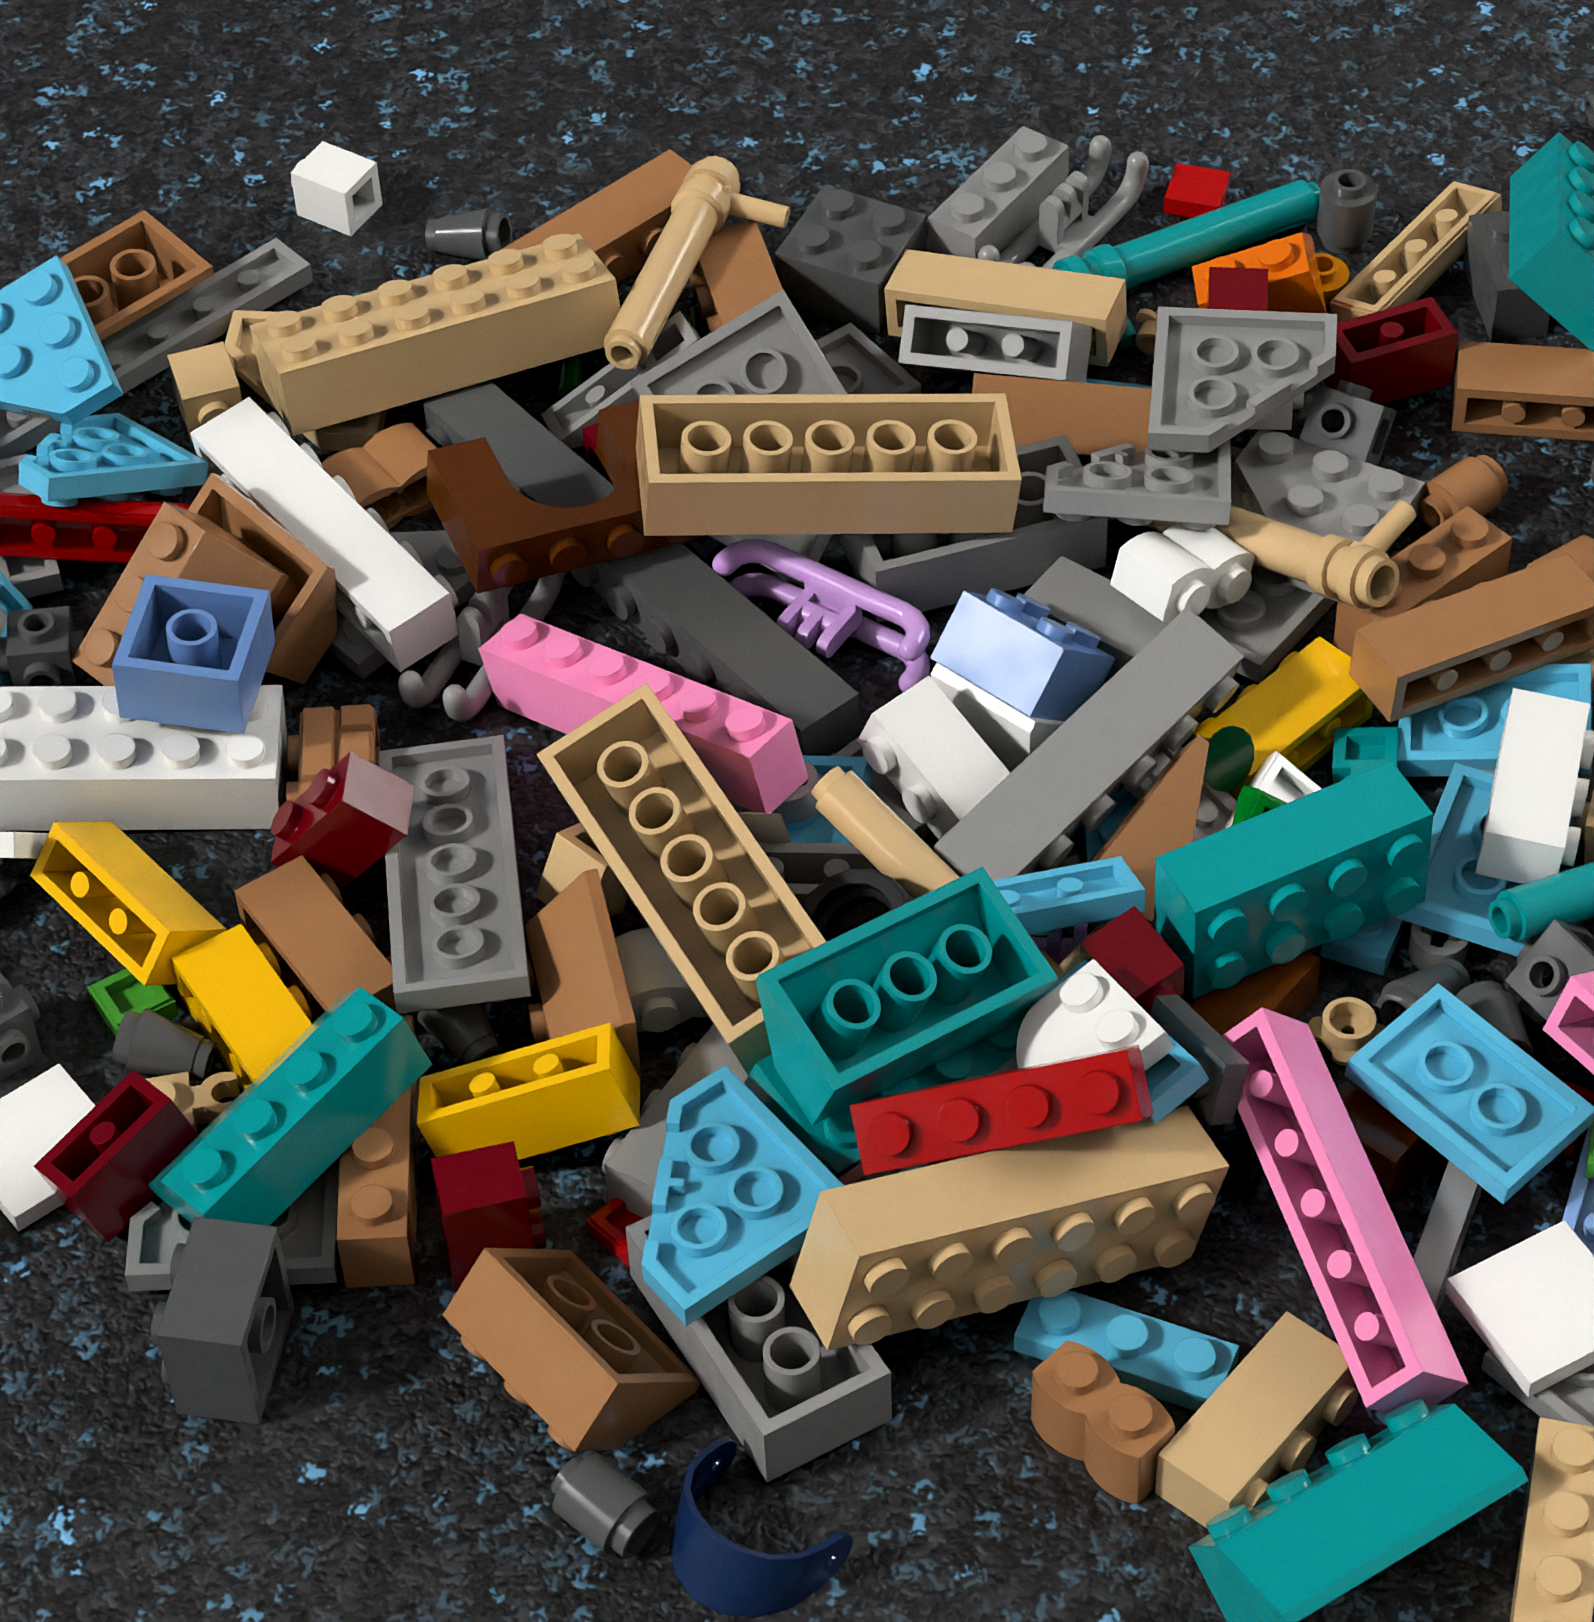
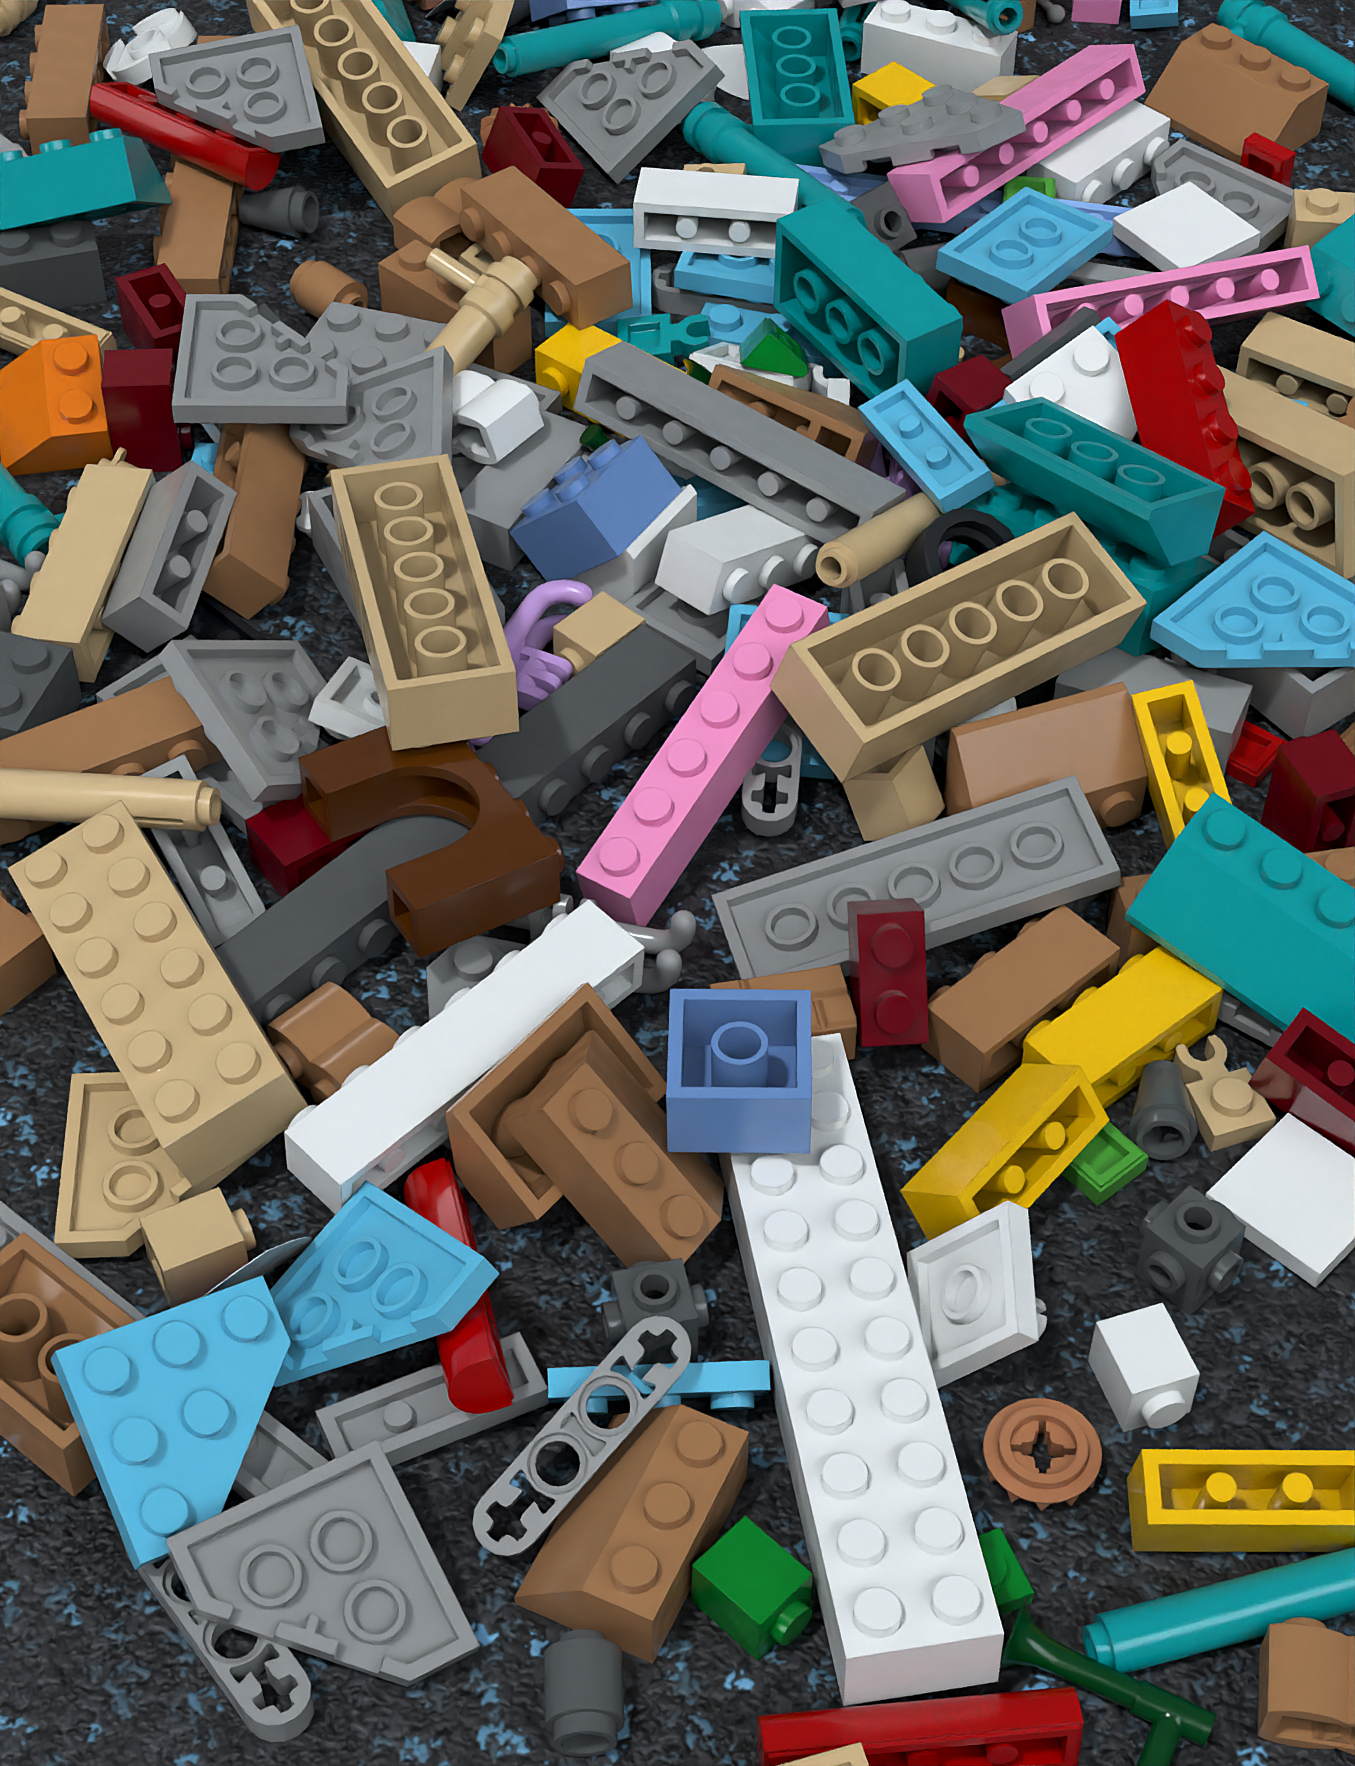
camera: 100 degrees left, 0 degrees up
(155, 407) = (265, 1262): none -> white sticker
(869, 668) = (593, 630): none -> tan brick

